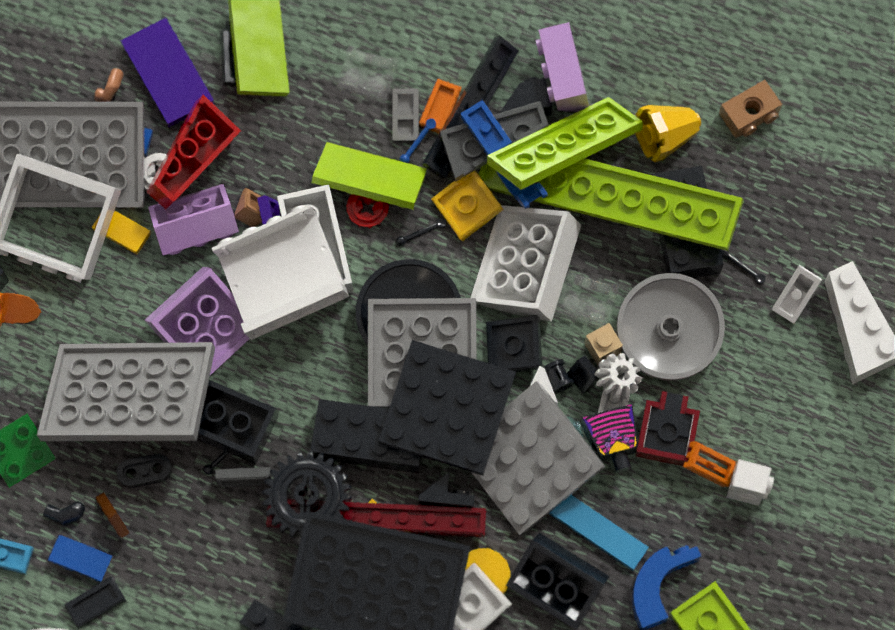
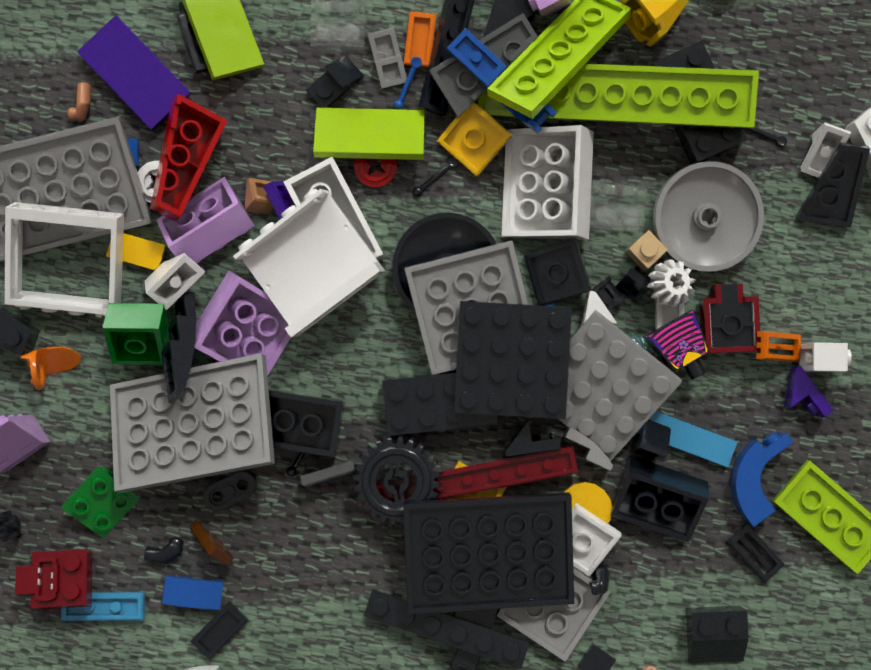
camera: 15 degrees left, 15 degrees up
(101, 300) = (136, 333): none -> green brick
(138, 318) = (179, 351): none -> black slope
(149, 259) = (172, 279): none -> white slope
(351, 124) = (334, 82): none -> black slope
(505, 522) = (593, 452): none -> light grey slope
(562, 522) = (652, 441): none -> black slope
(725, 511) = (802, 387): none -> dark purple slope
(800, 332) = (837, 188): none -> black wing

